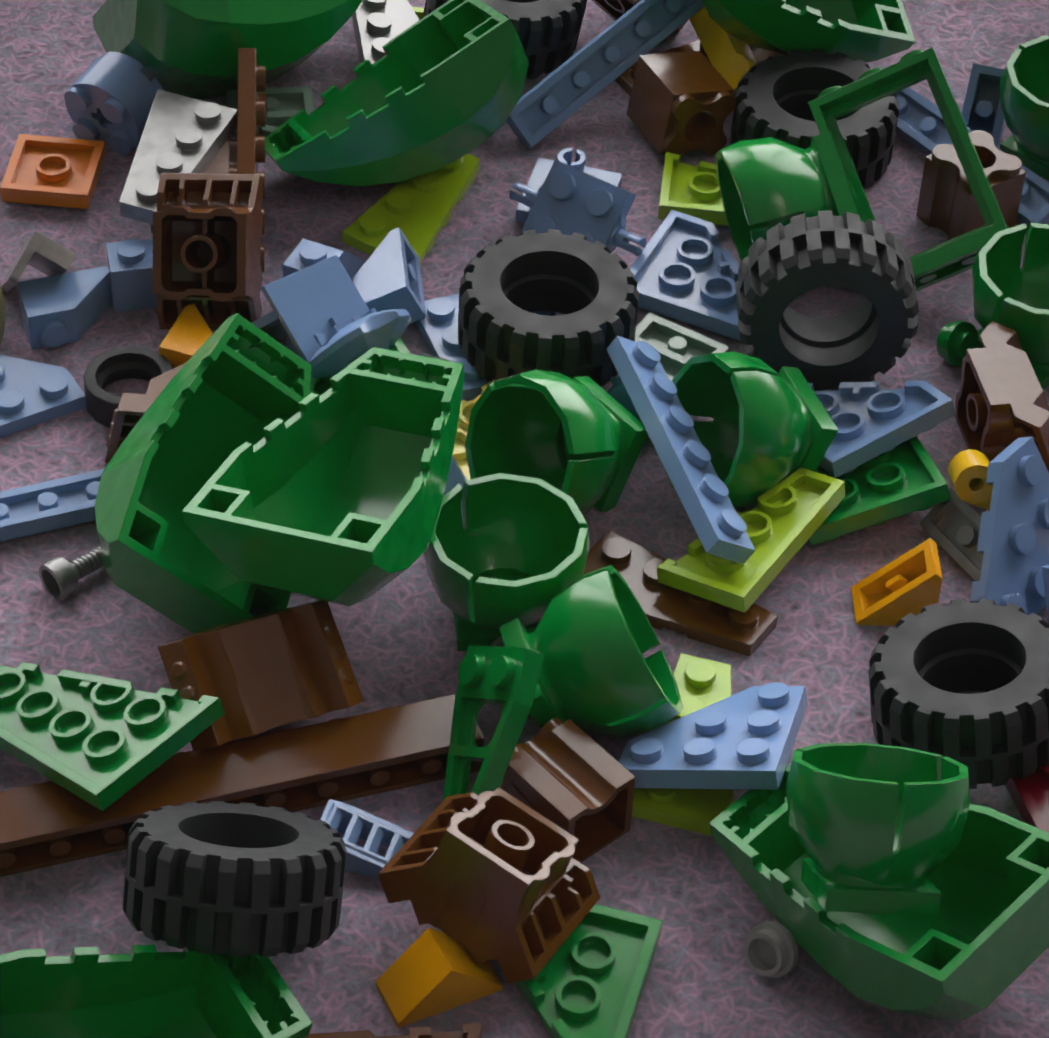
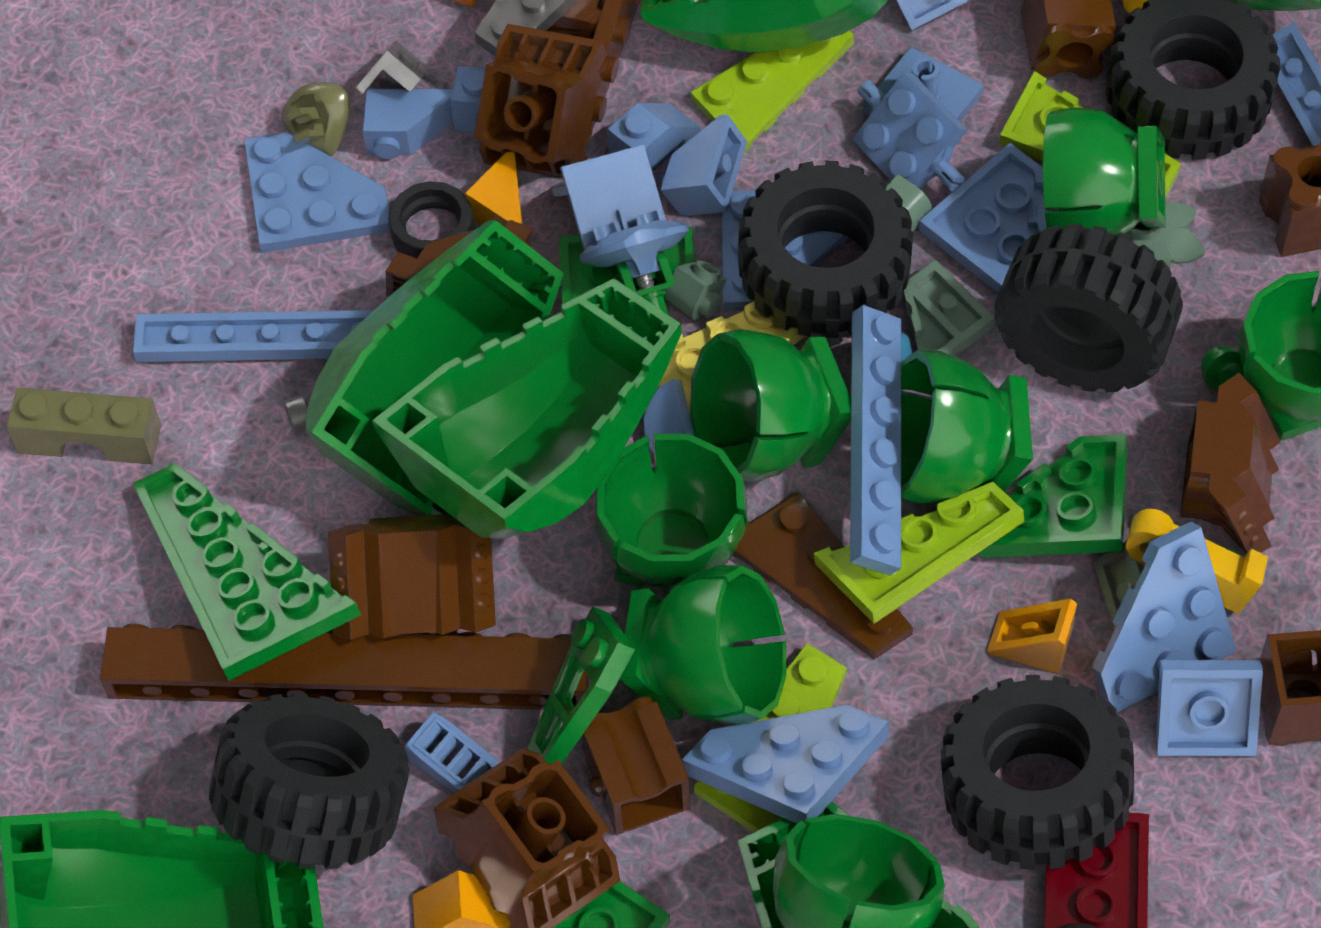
camera: 25 degrees right, 15 degrees up
(877, 83) = (1237, 75): green door -> none
(878, 419) = (1083, 439): medium blue plate -> none

